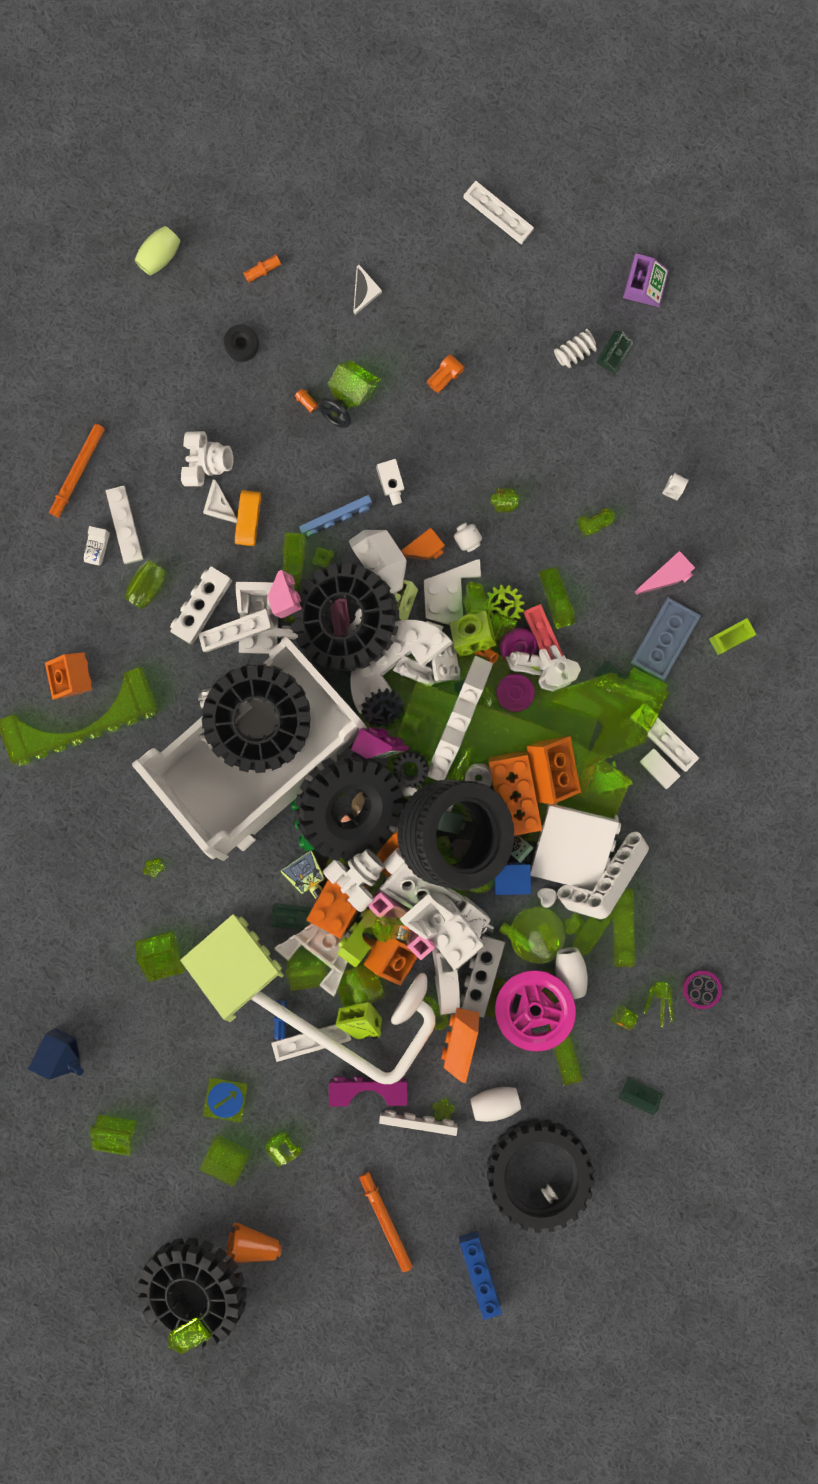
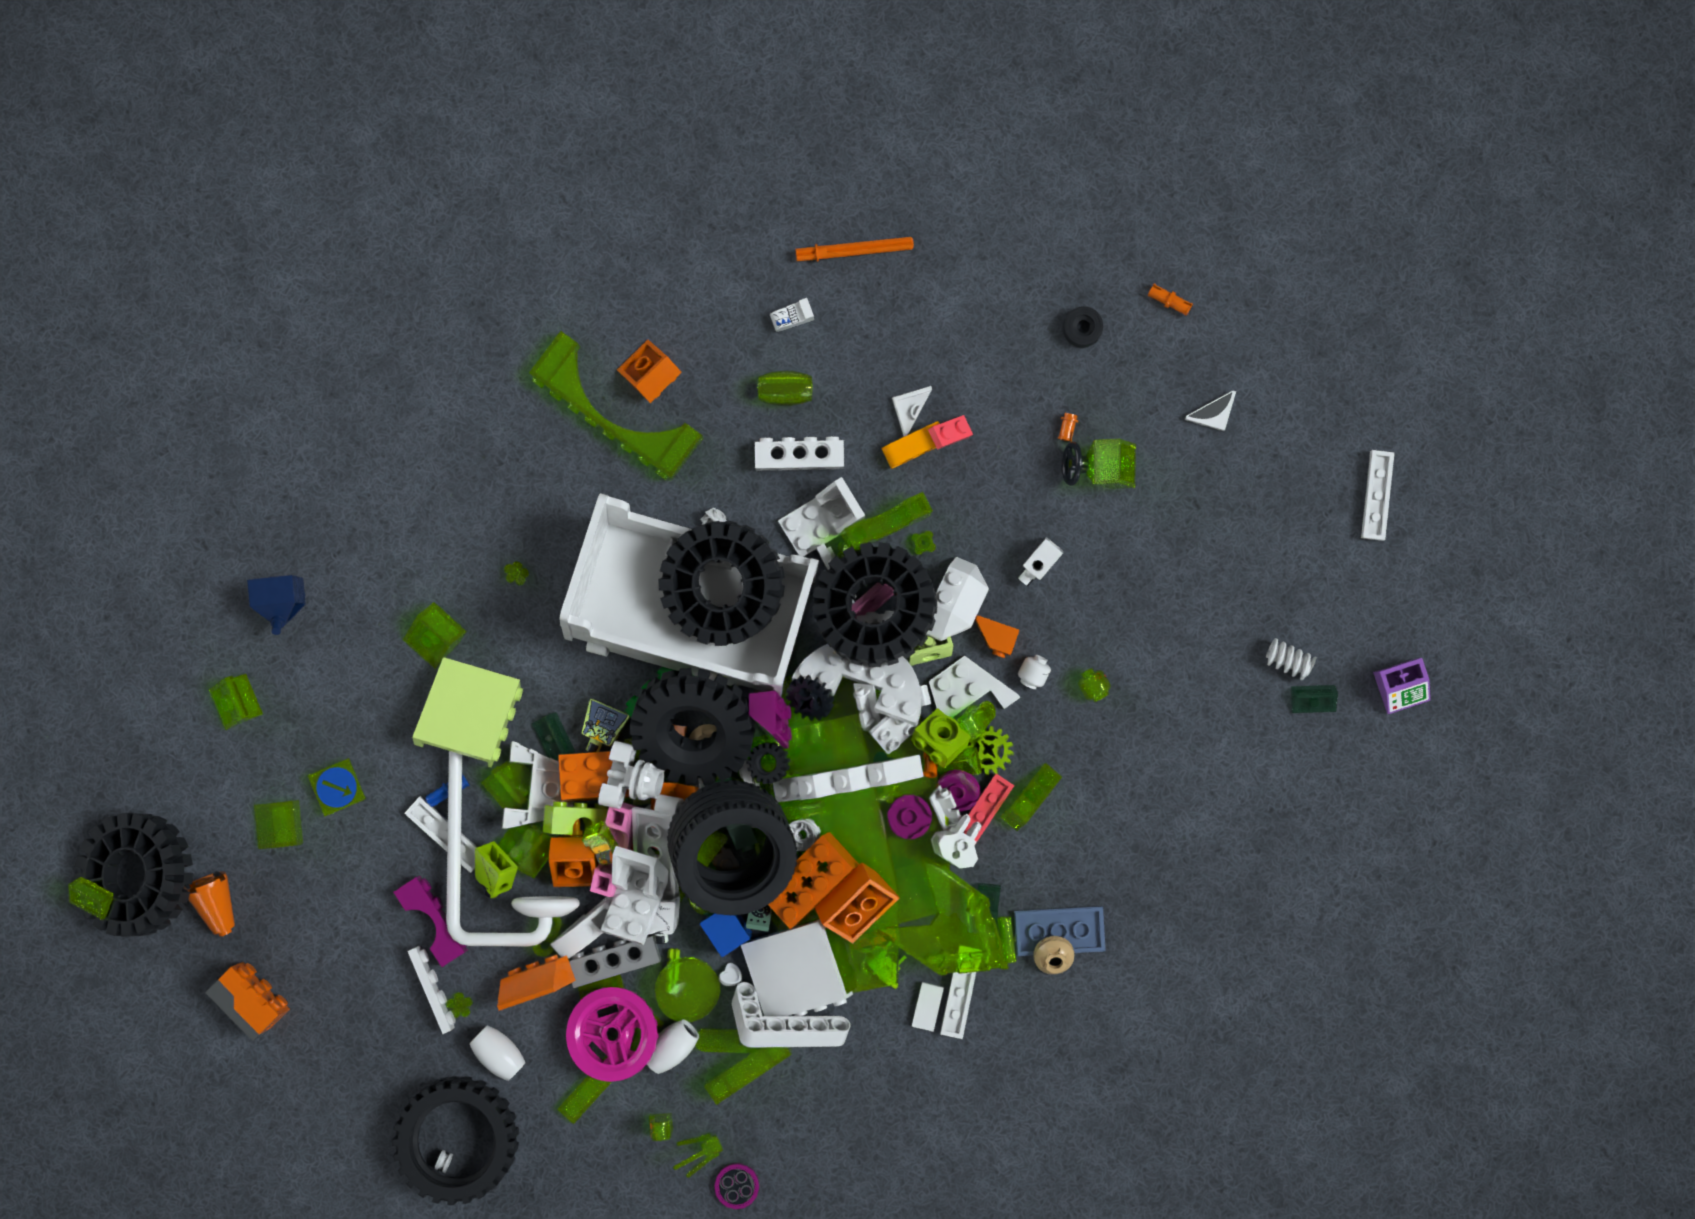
camera: 60 degrees right, 0 degrees up
(124, 525) = (831, 329): white plate -> none
(157, 250) = (1120, 187): yellowish green piece -> none
(204, 458) = (945, 365): white beam -> none
(236, 630) = (796, 505): white plate -> none
(255, 485) = (950, 432): none -> coral plate
(276, 1154) = (315, 870): clear neon green helmet -> none
(282, 596) = (856, 532): bright pink slope -> none
(340, 1265) = (248, 1000): none -> orange piece
(344, 513) = (979, 535): medium blue plate -> none
(385, 1221) = (317, 1017): orange axle -> none
(448, 370) = (1187, 546): orange piece -> none
(480, 1275) = (323, 1143): blue brick -> none
(574, 924) = (720, 1018): clear neon green plant -> none
(596, 523) = (1136, 793): clear neon green leg -> none
(640, 1096) = (594, 1191): clear green slope -> none
(671, 573) = (1127, 894): bright pink slope -> none
(674, 653) = (1053, 947): none -> tan piece
(675, 486) = (1216, 844): white leg -> none
(732, 636) = (1104, 995): lime panel -> none

